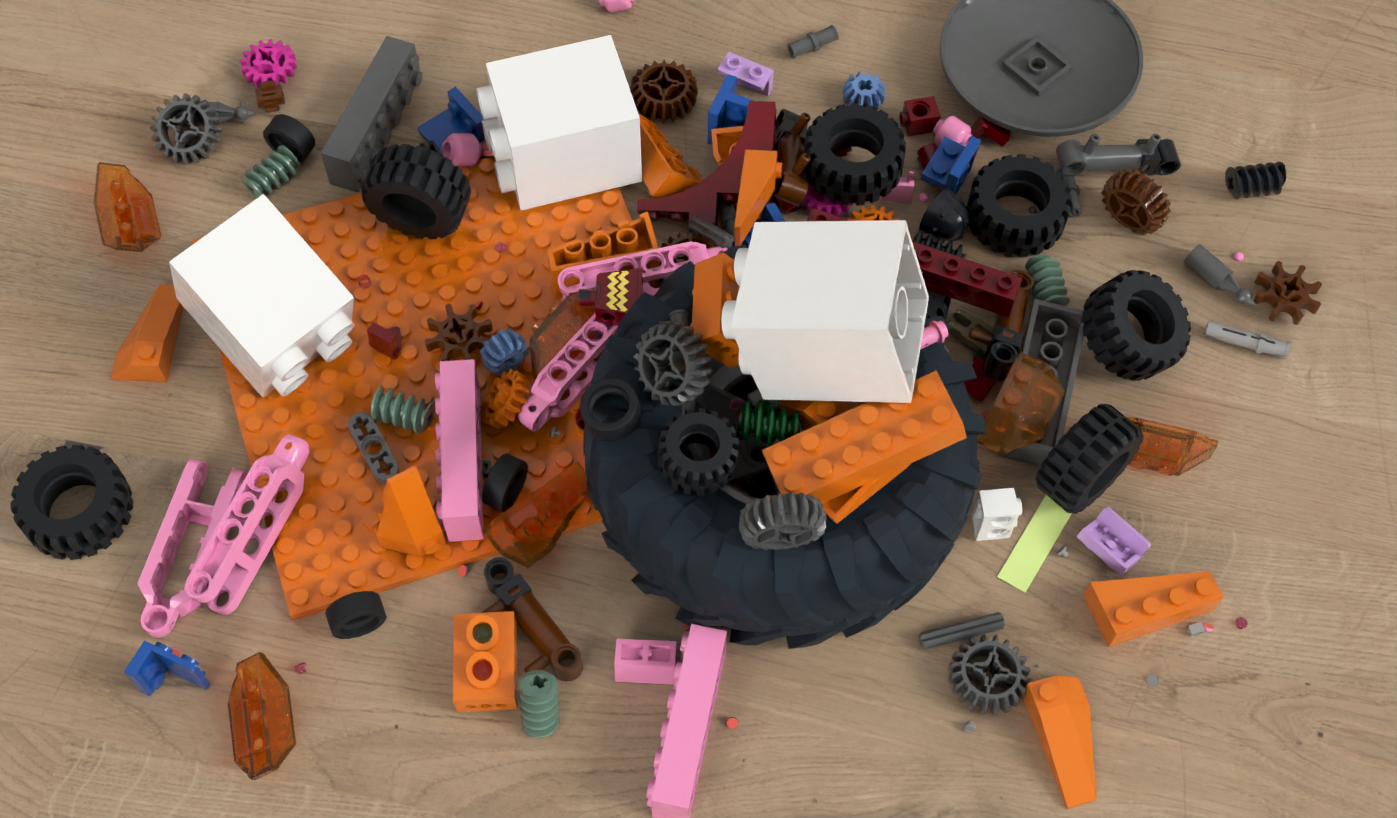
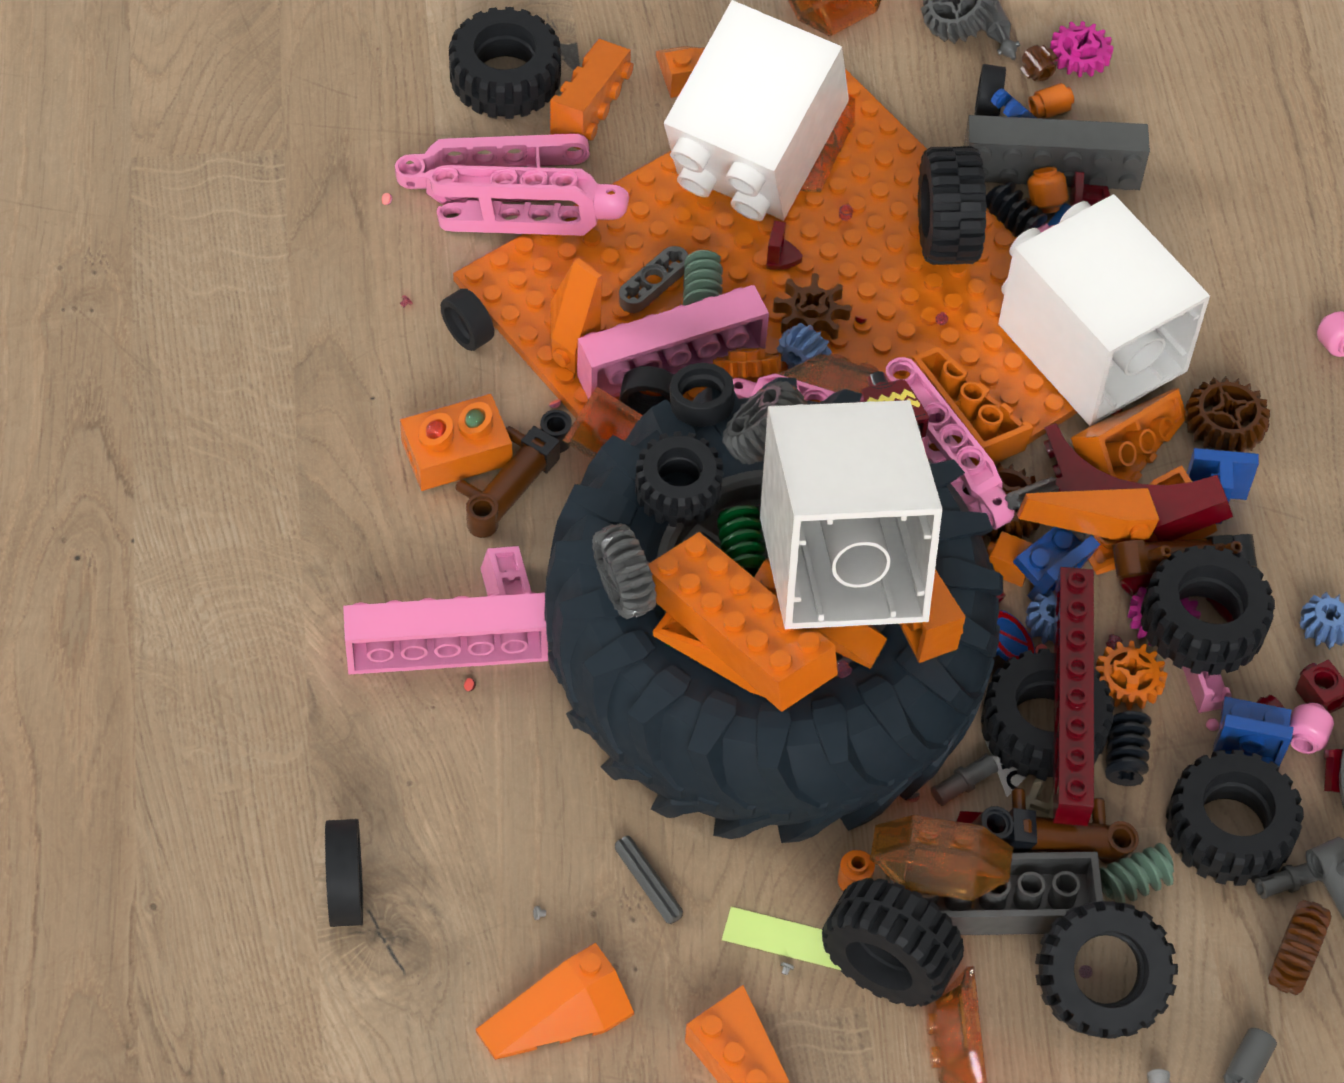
camera: 70 degrees right, 5 degrees down
(139, 440) = (590, 91): none -> orange wedge
(153, 661) = (359, 182): blue bracket -> none
(260, 717) = (341, 283): clear orange wedge -> none
(271, 171) = (941, 95): sand green piece -> none
(311, 102) = (1051, 101): none -> orange brick
(321, 124) = (1012, 106): none -> blue hinge
(405, 129) = (1047, 189): none -> orange head
(417, 109) = (1085, 192): none -> dark red tile
(539, 703) = (425, 496): sand green piece -> none
(748, 73) = (1287, 488): lavender bracket -> none
(934, 333) = (919, 672): bright pink pin -> none
(946, 217) = (1180, 738): black helmet -> none
(995, 514) = (795, 872): white brick -> none
(1001, 472) = (854, 867): none -> orange brick
(1013, 676) = (602, 886): dark grey gear -> none
(1114, 541) = (812, 1013): lavender bracket -> none

